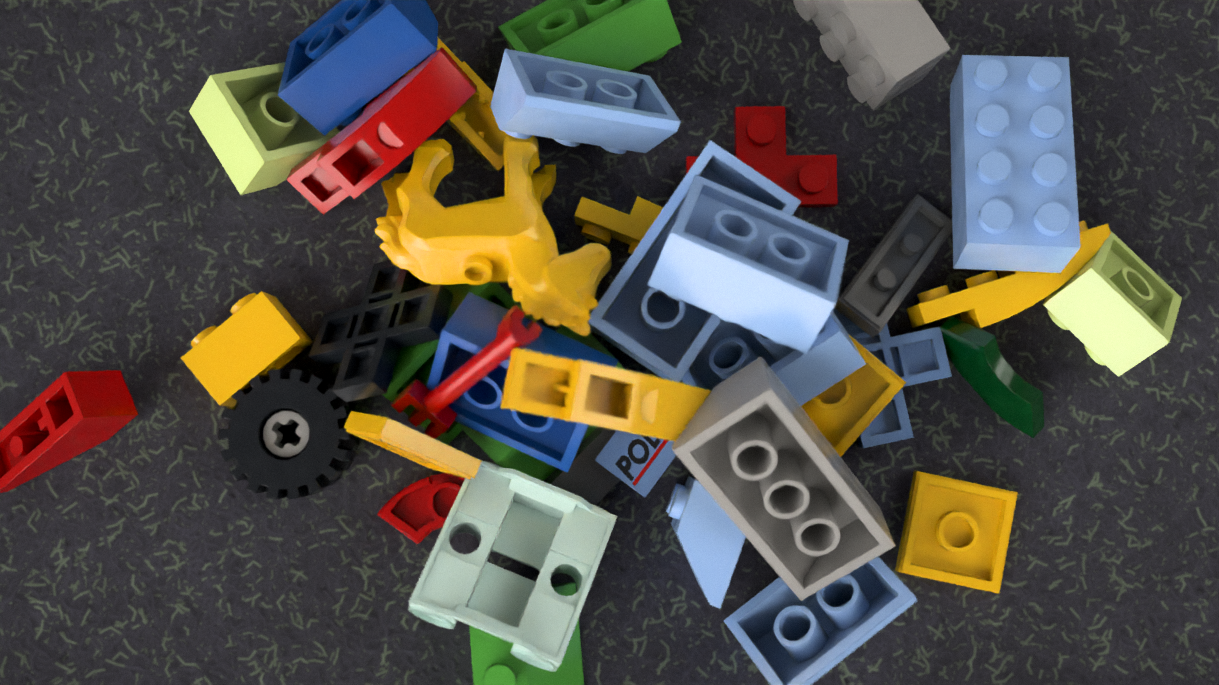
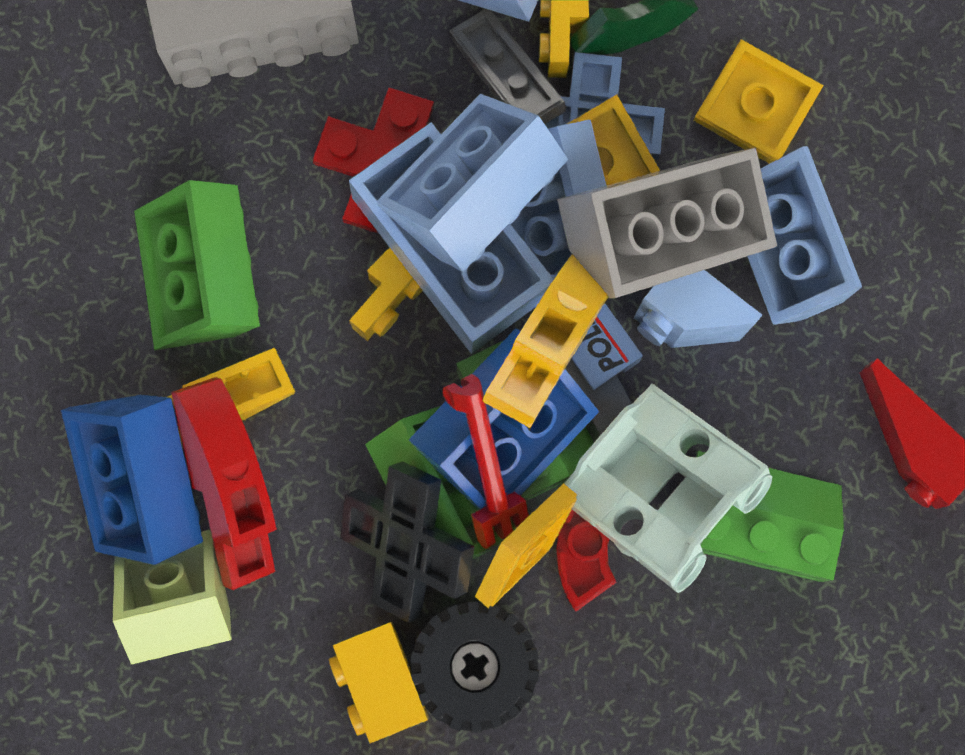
camera: 75 degrees left, 5 degrees down
(491, 238) = (363, 410): yellow animal -> none
(580, 104) = (266, 289): light blue slope -> none

